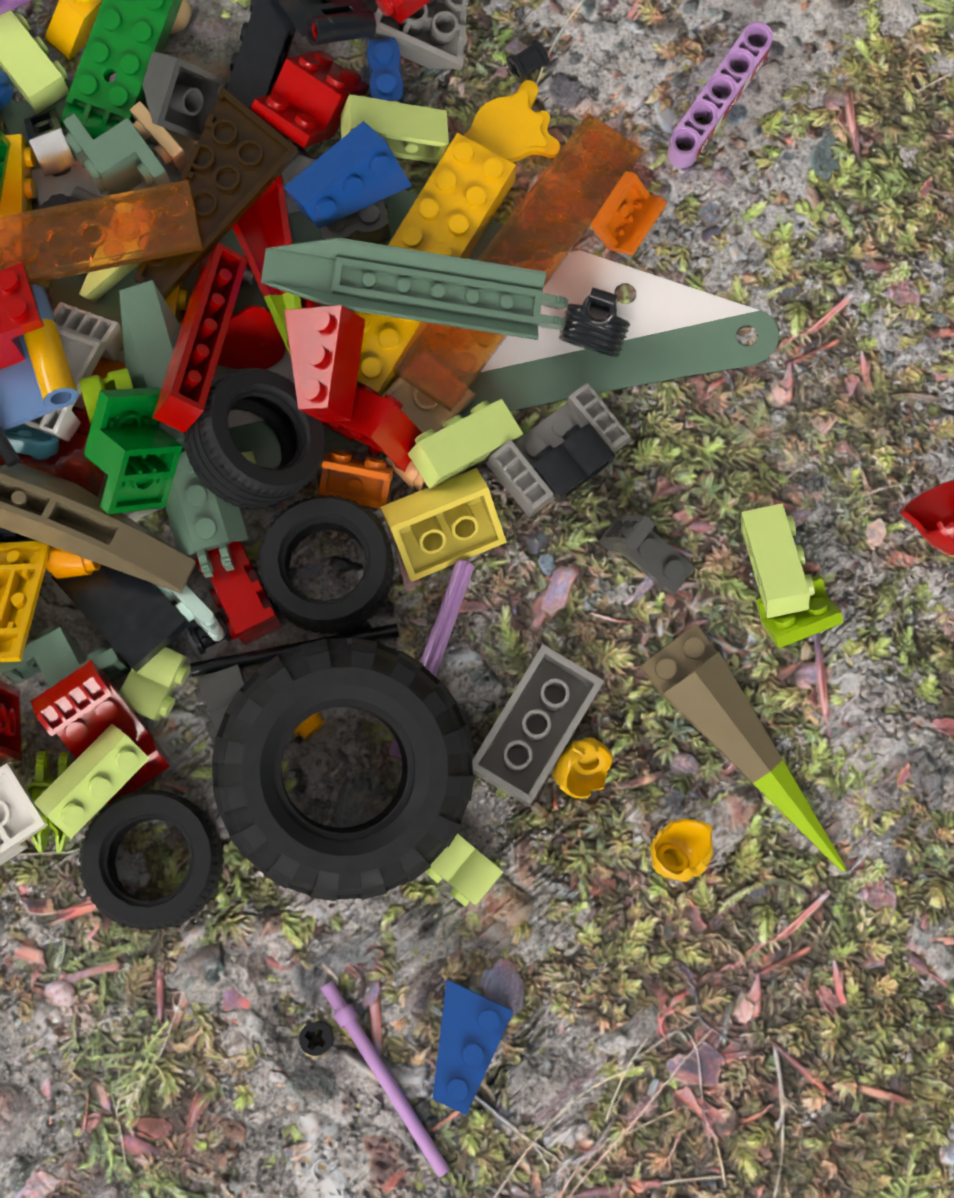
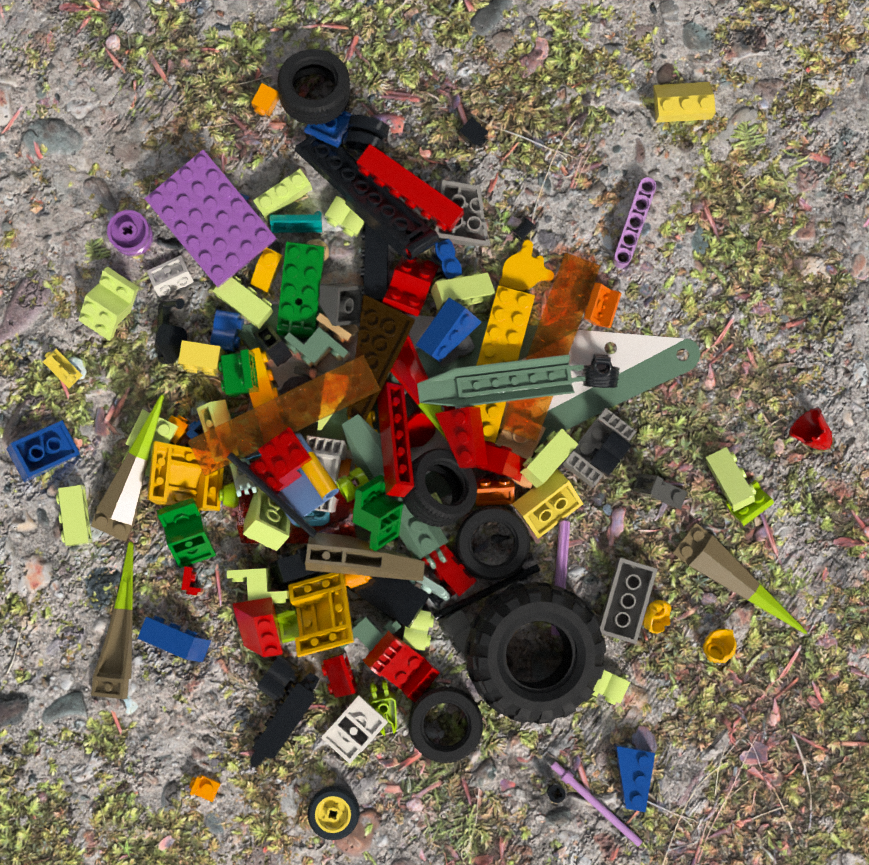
camera: 15 degrees left, 5 degrees up
(91, 780) = (405, 693): yellowish green brick -> none

